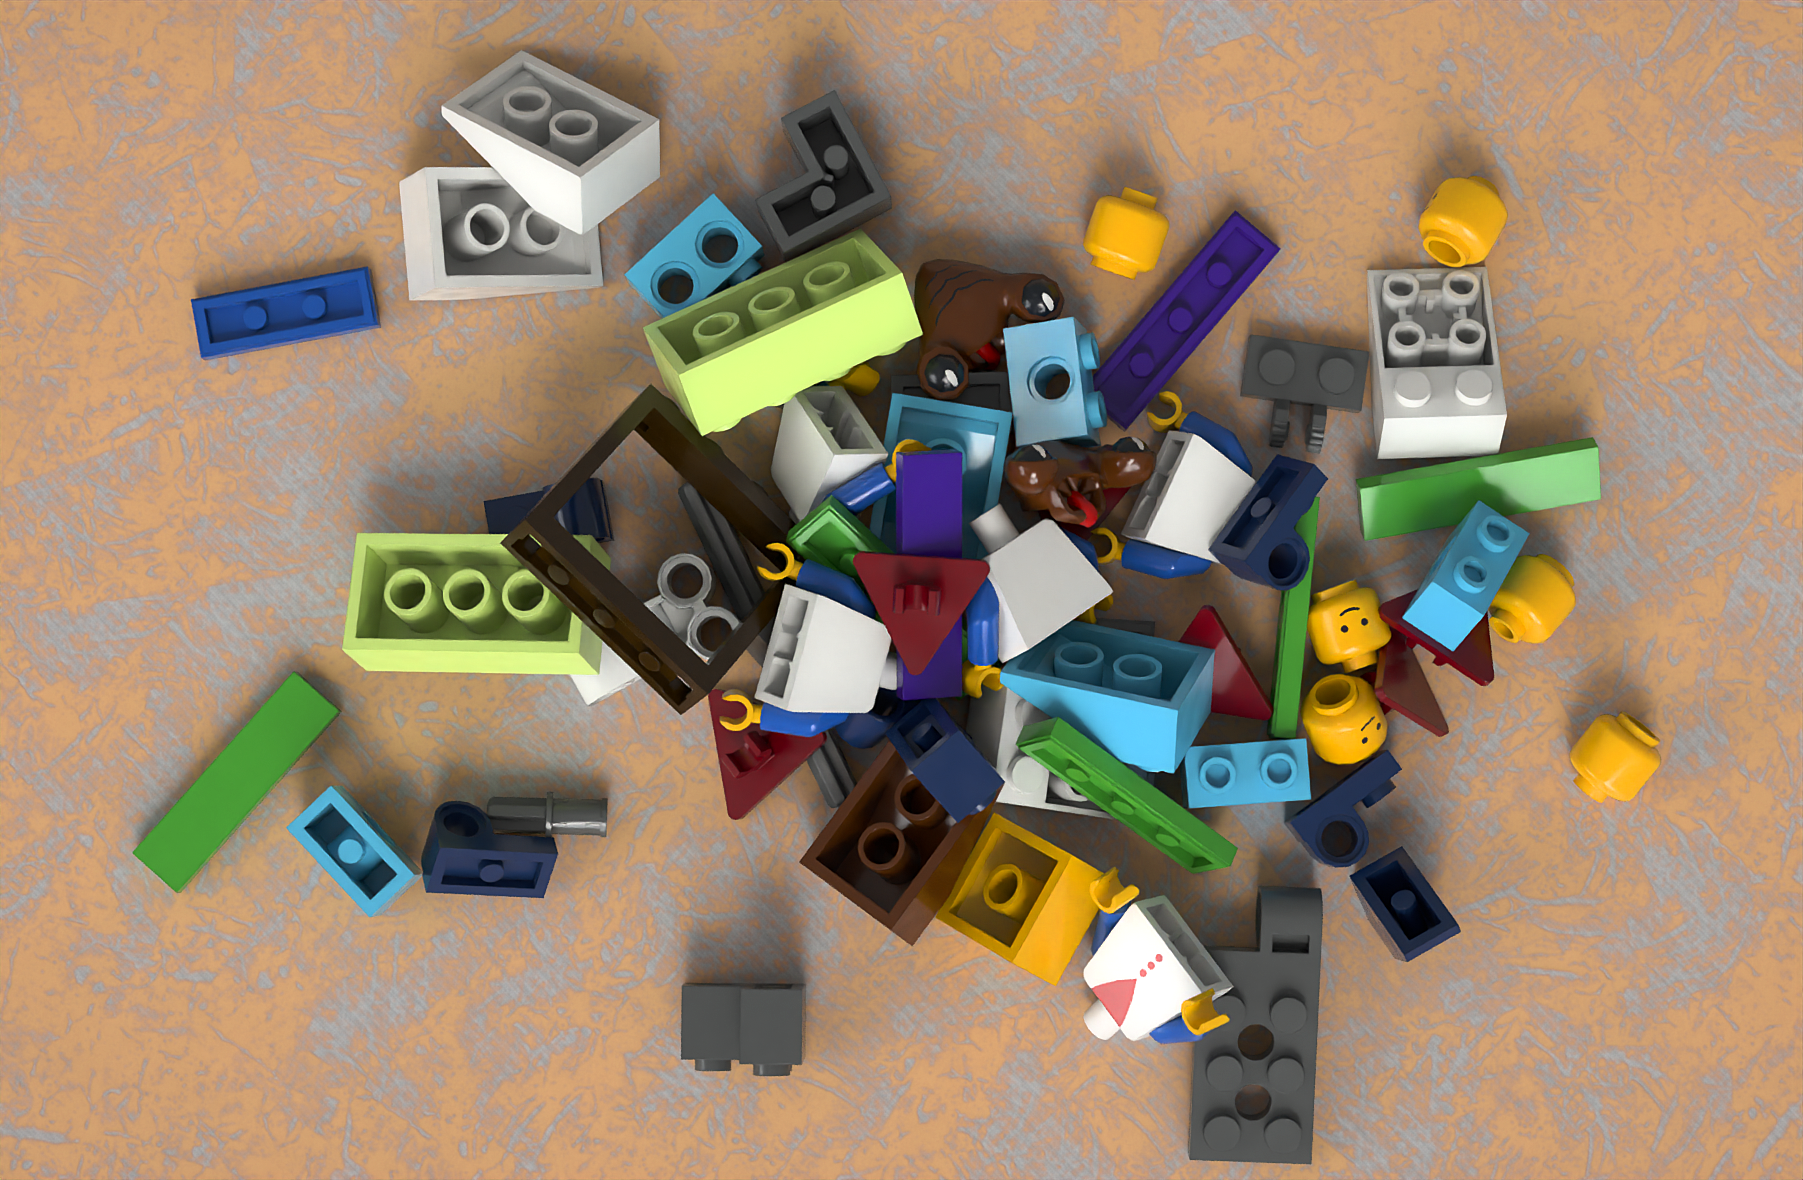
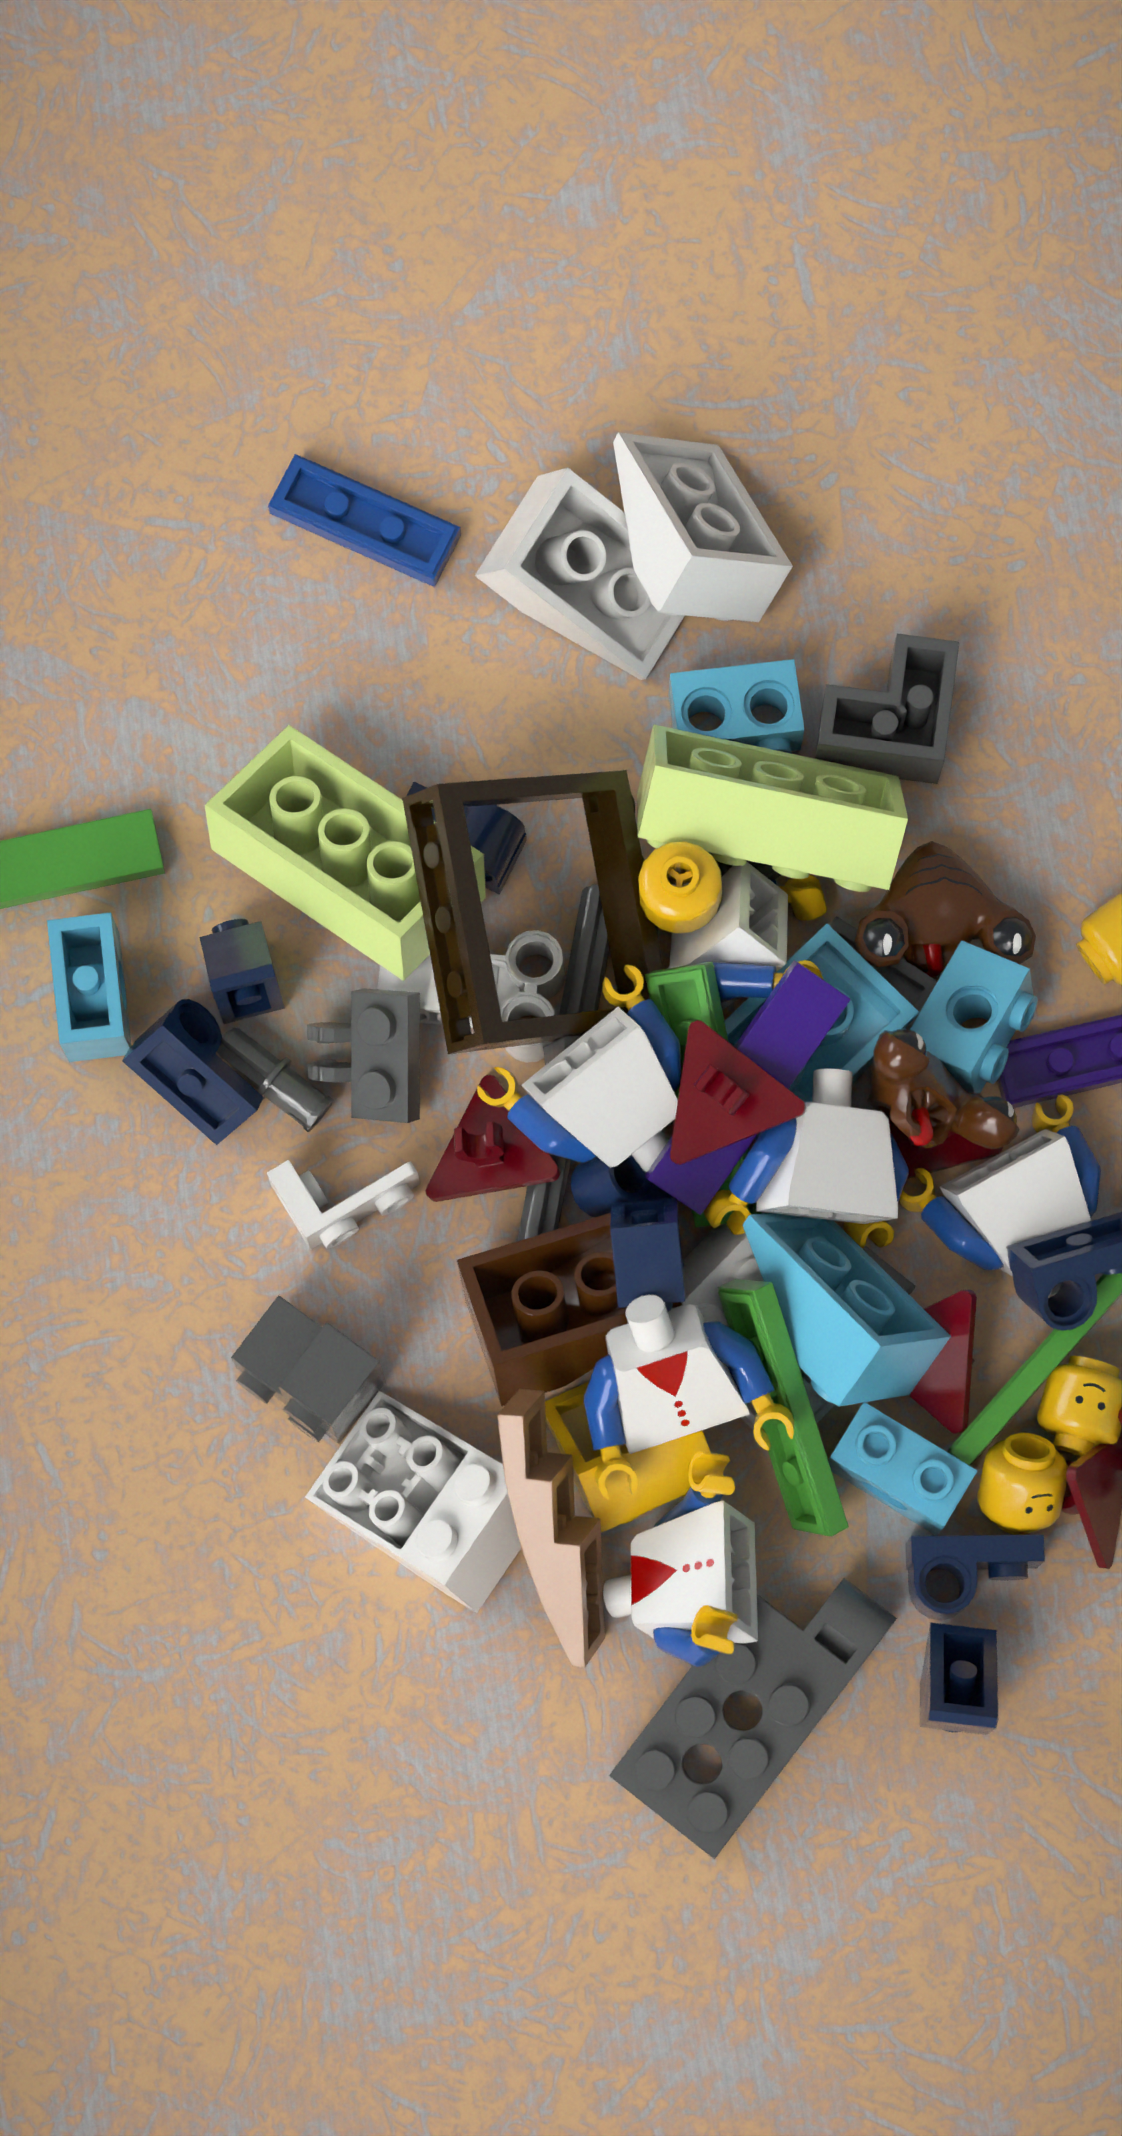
camera: 35 degrees right, 10 degrees down
(460, 750) = (241, 970): none -> dark blue slope
(621, 737) = (383, 1054): none -> dark grey hinge
(642, 892) = (304, 1197): none -> white bracket
(771, 471) = (680, 907): none -> yellow head
(906, 1054) = (422, 1500): none -> white slope
(1029, 1022) = (557, 1545): none -> slope
(1033, 842) = (671, 1380): none -> torso

